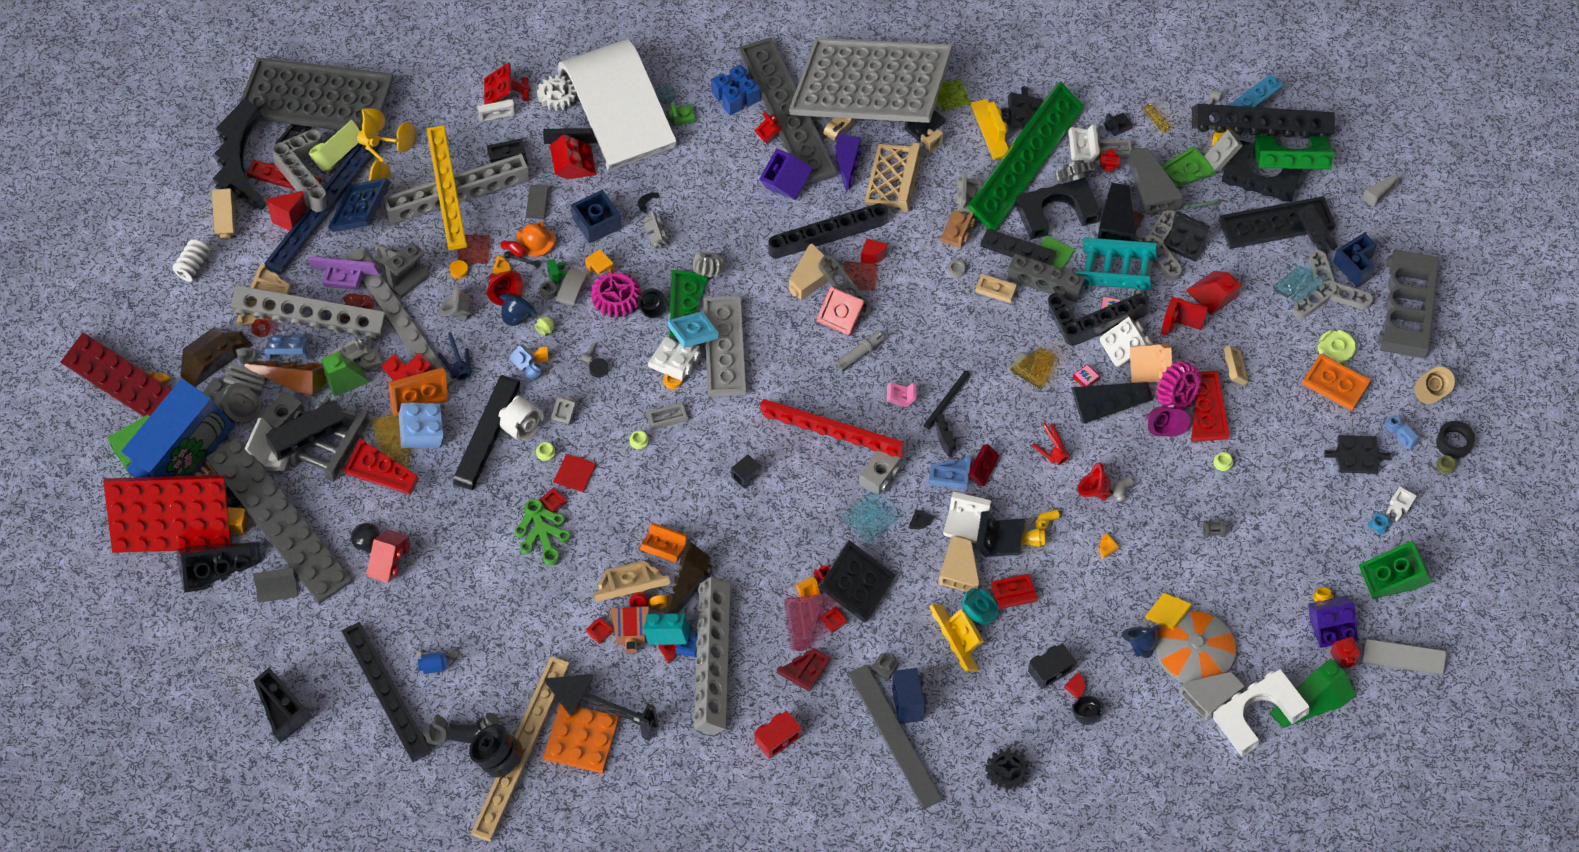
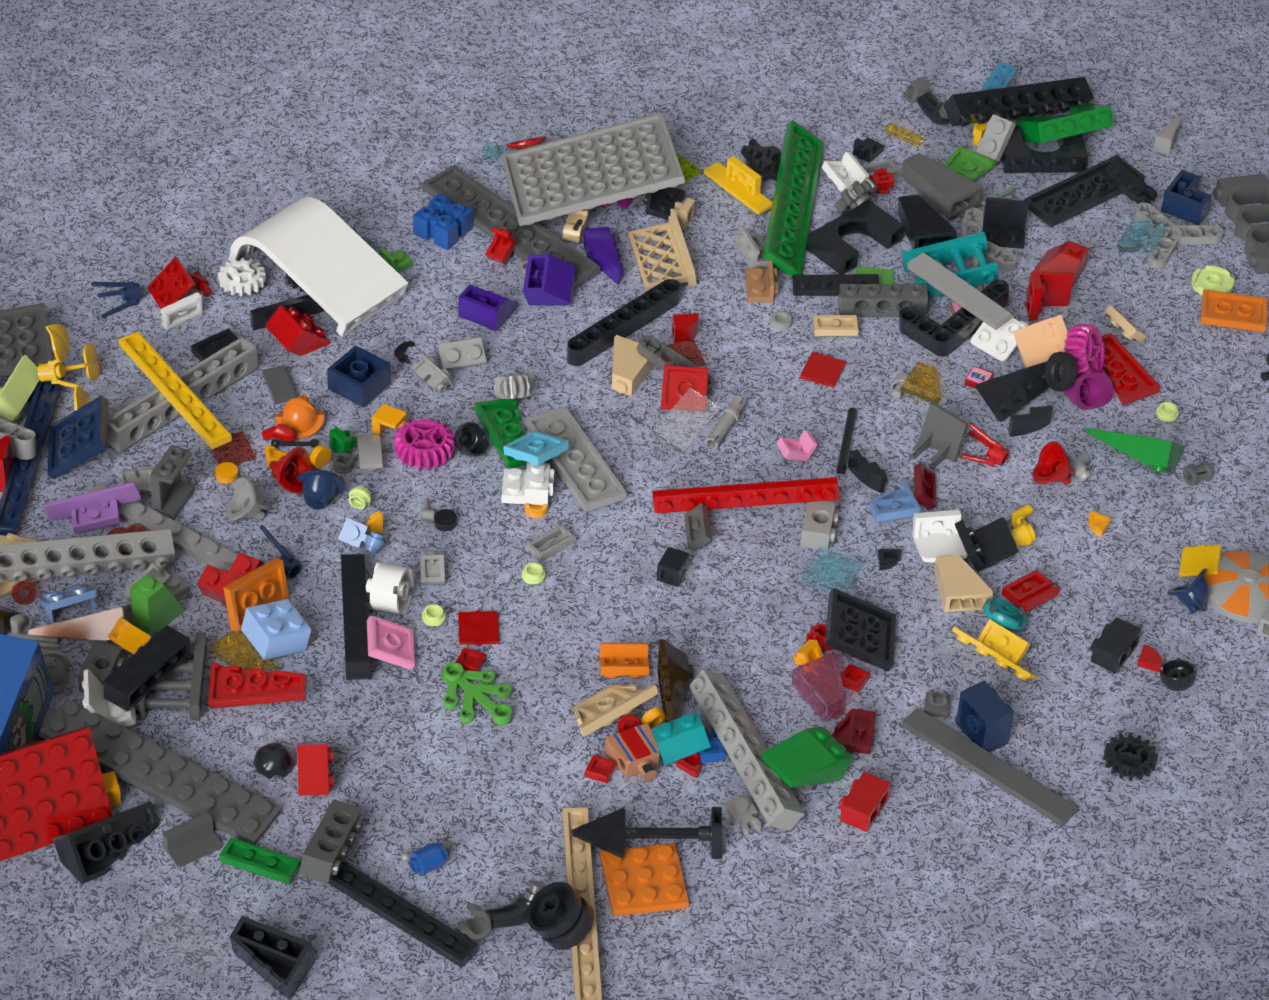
camera: 25 degrees left, 15 degrees down
(307, 397) = (128, 635): none -> light orange panel
(314, 619) = (260, 860): none -> green plate
(376, 615) = (331, 841): none -> dark grey brick
(466, 80) = (130, 292): none -> dark blue plant
(499, 465) = (390, 642): none -> bright pink plate
(532, 279) = (320, 456): none -> light orange tile
(684, 707) = (743, 811): none -> light grey plate
(687, 219) = (461, 353): none -> light grey bracket
(728, 180) = (484, 307): none -> dark purple slope
(751, 683) = (808, 758): none -> green slope
(784, 441) = (697, 527): none -> dark grey plate
(810, 32) = (492, 151): none -> clear light blue plate
(828, 339) = (686, 420): none -> clear piece
(840, 32) = (518, 145): none -> red dish
(965, 326) = (823, 369): none -> red piece
(1022, 421) = (943, 433): none -> dark grey plate
(1105, 294) = (959, 291): none -> light grey tile
(1111, 432) = (1028, 423): none -> black slope
(1147, 398) = (1069, 371): none -> black tyre
(1185, 497) = (1153, 452): none -> green wedge
(1193, 91) = (927, 101): none -> piece

